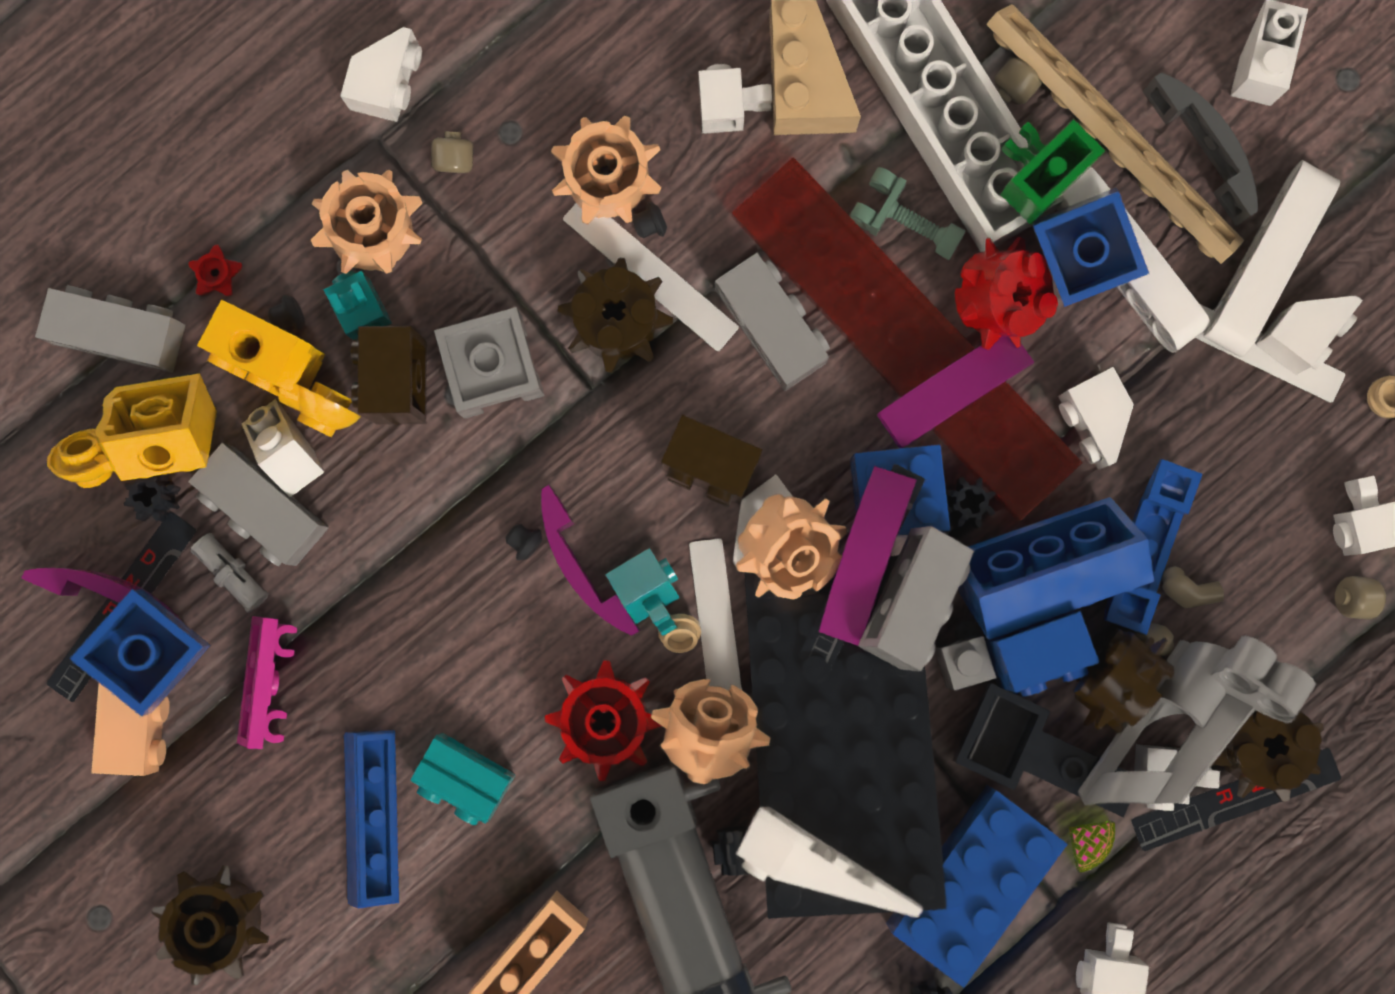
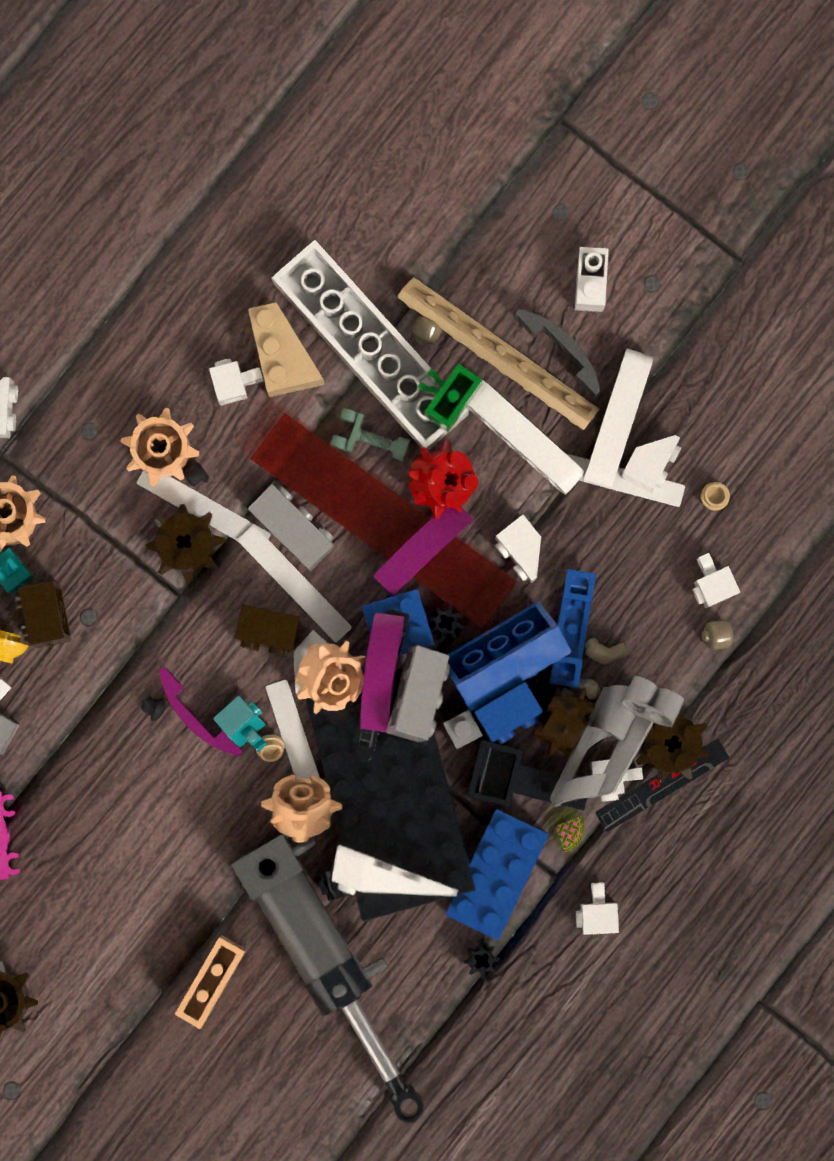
camera: 15 degrees left, 0 degrees up
(371, 818) = (88, 912): blue slope -> none
(452, 153) = (52, 454): dark tan piece -> none
(462, 779) = (144, 873): teal brick -> none
(488, 362) = (106, 592): light grey panel -> none
(603, 746) = (214, 818): red brick -> none
(759, 404) = (294, 583): none -> white sticker
(1090, 247) = (490, 439): blue brick -> none

